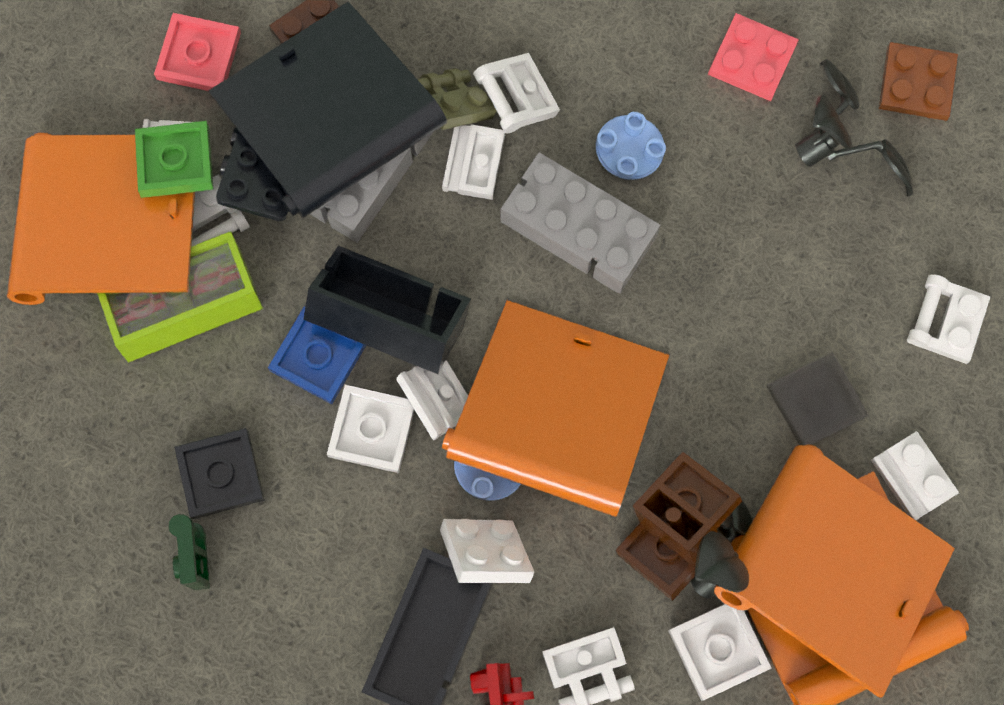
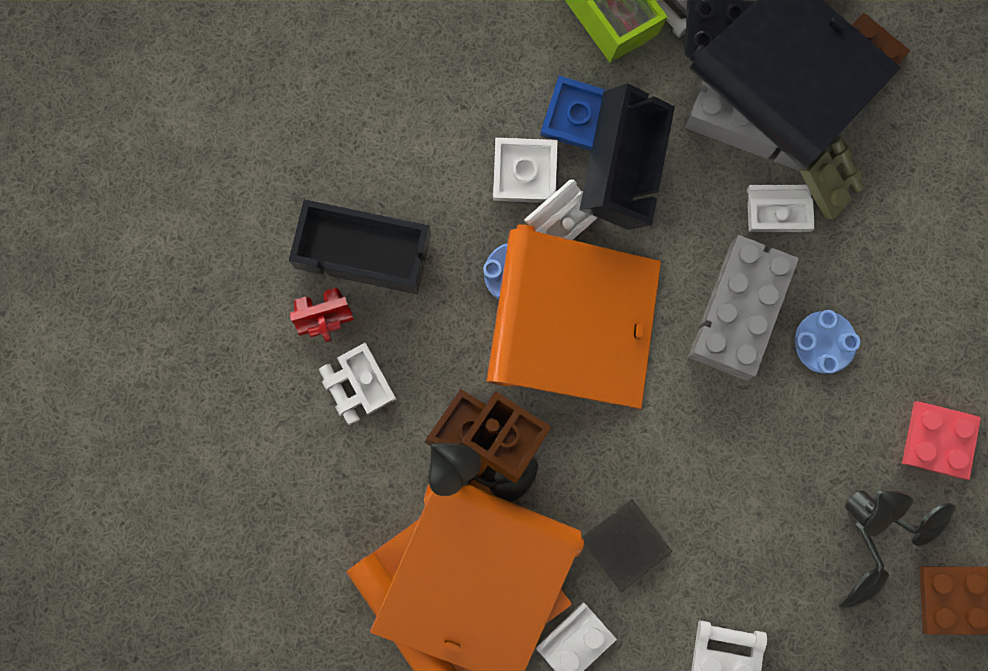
camera: 80 degrees right, 5 degrees up
(192, 558) = (383, 48): dark green plate -> none
(219, 473) = (464, 58): black plate -> none
(486, 551) = (436, 278): white plate -> none
(525, 87) = (859, 239): white plate -> none
(719, 650) = (391, 490): white plate -> none

